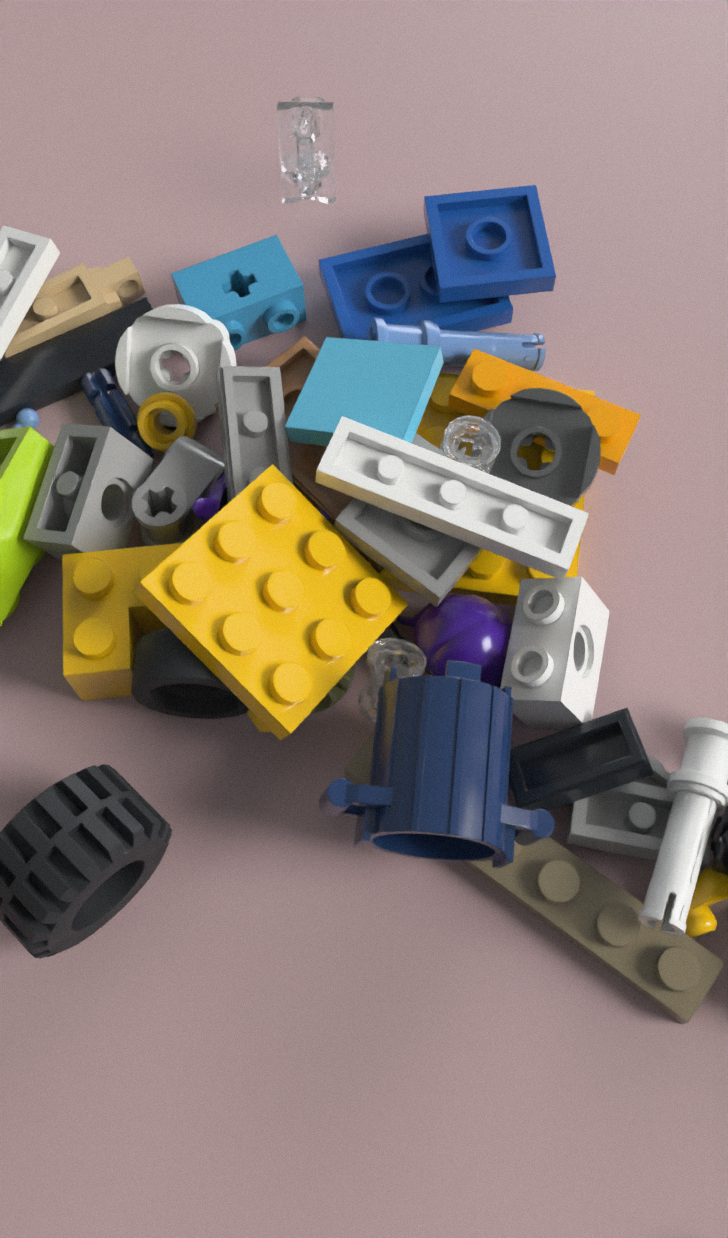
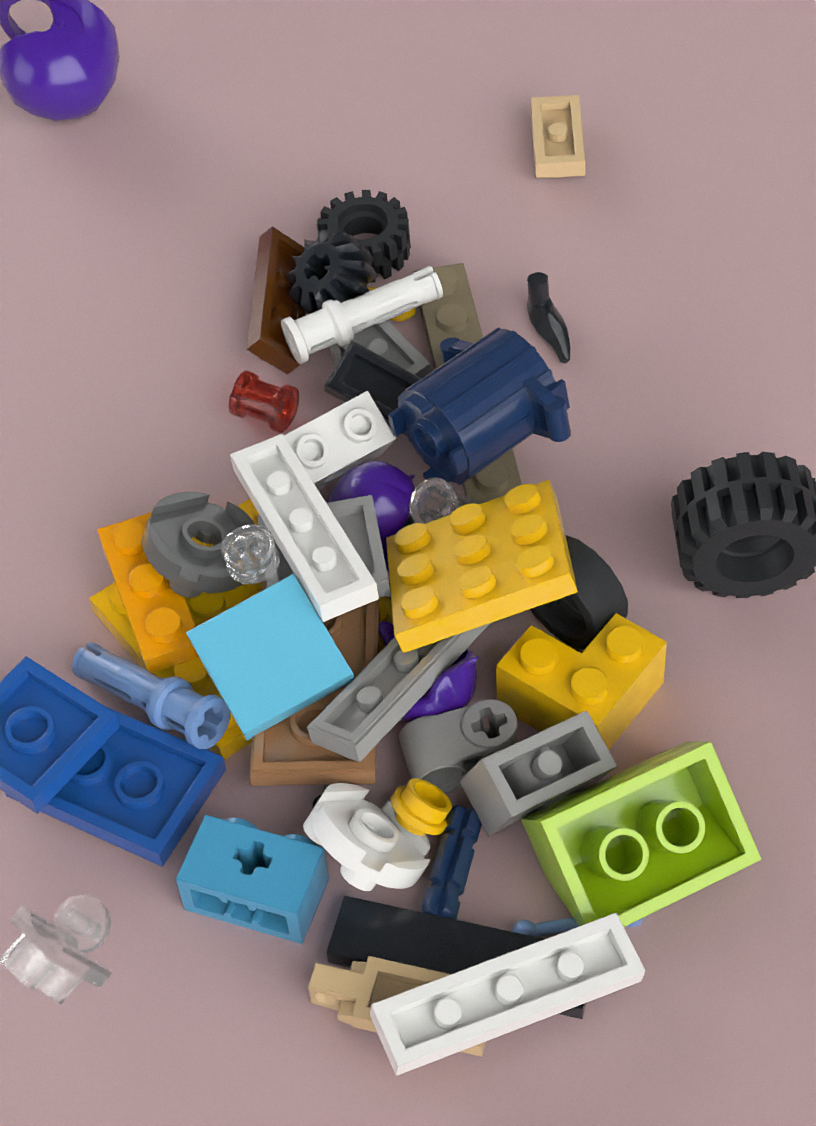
camera: 135 degrees left, 15 degrees down
(529, 1024) = (546, 317): none -> black bar
(679, 674) = (264, 401): none -> clear red bush

